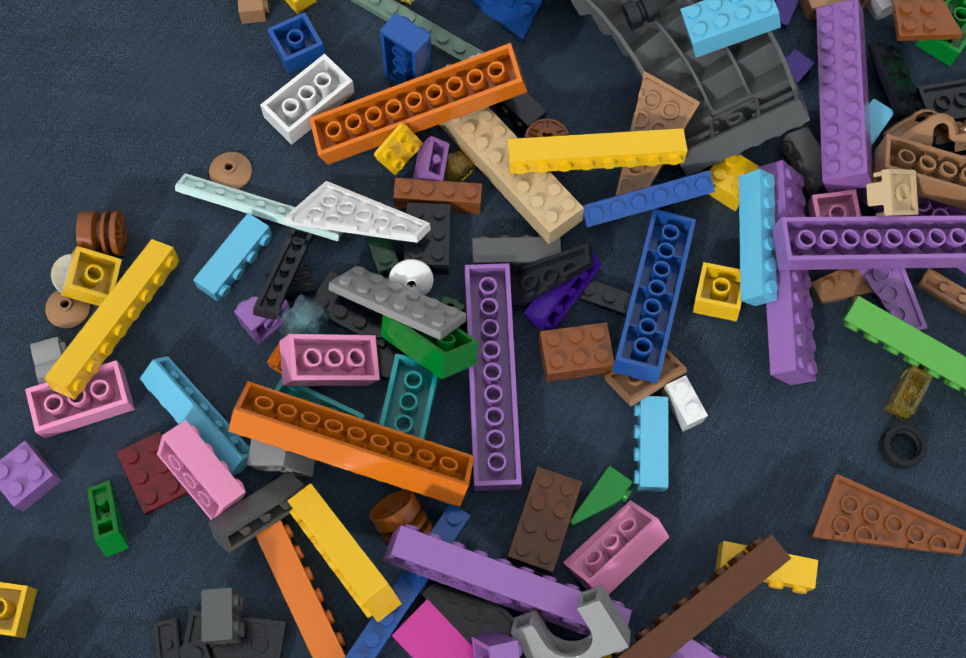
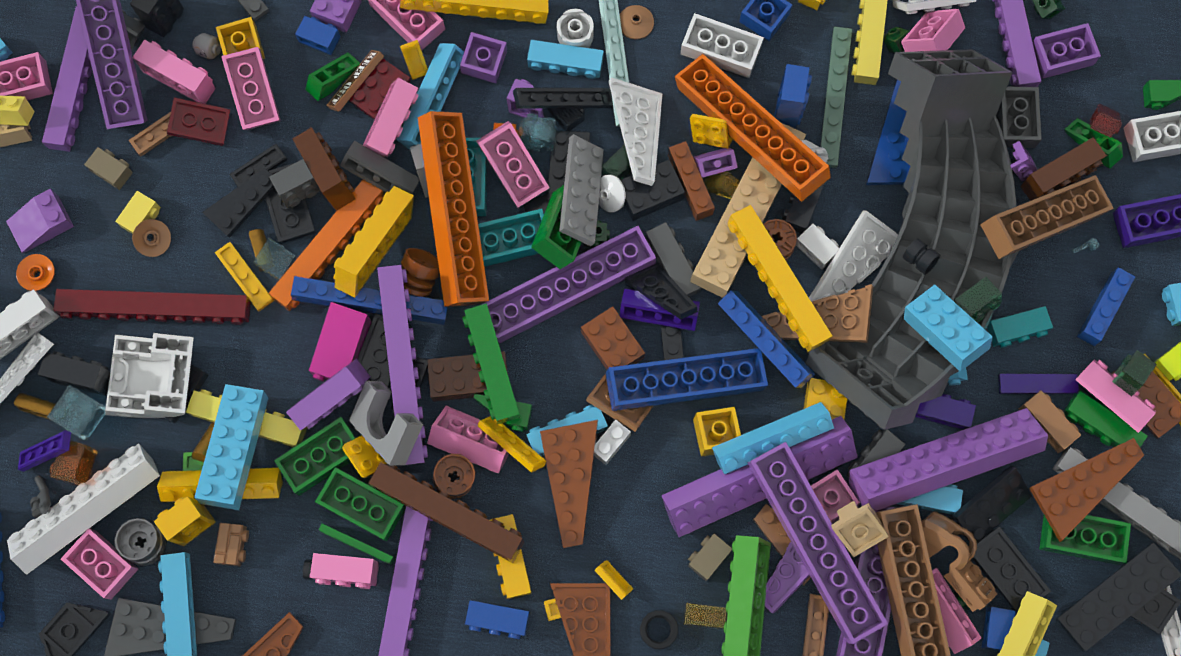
camera: 70 degrees right, 5 degrees up
(46, 512) = (318, 35): none -> blue brick
(71, 619) = (251, 88): none -> bright pink brick
(128, 494) = (355, 80): none -> medium nougat tile
(143, 414) = (414, 59): none -> yellow tile
(184, 339) = (483, 57): none -> medium lavender brick
(206, 230) = (575, 20): none -> white brick
(224, 570) = (324, 168): none -> reddish brown brick
(551, 484) = (492, 364): none -> green brick
(569, 110) = (817, 246): none -> white brick
(597, 81) = (857, 257): none -> white wing
(644, 506) = (512, 444): none -> yellow tile
(663, 577) = (454, 464): none -> dark orange wheel
(697, 455) = (570, 466): none -> dark orange wing
(830, 612) = (497, 619): none -> blue brick
(833, 467) = (614, 579): none -> yellow tile
(838, 548) = (552, 610): none -> yellow tile
(846, 361) = (709, 557): none -> dark tan brick

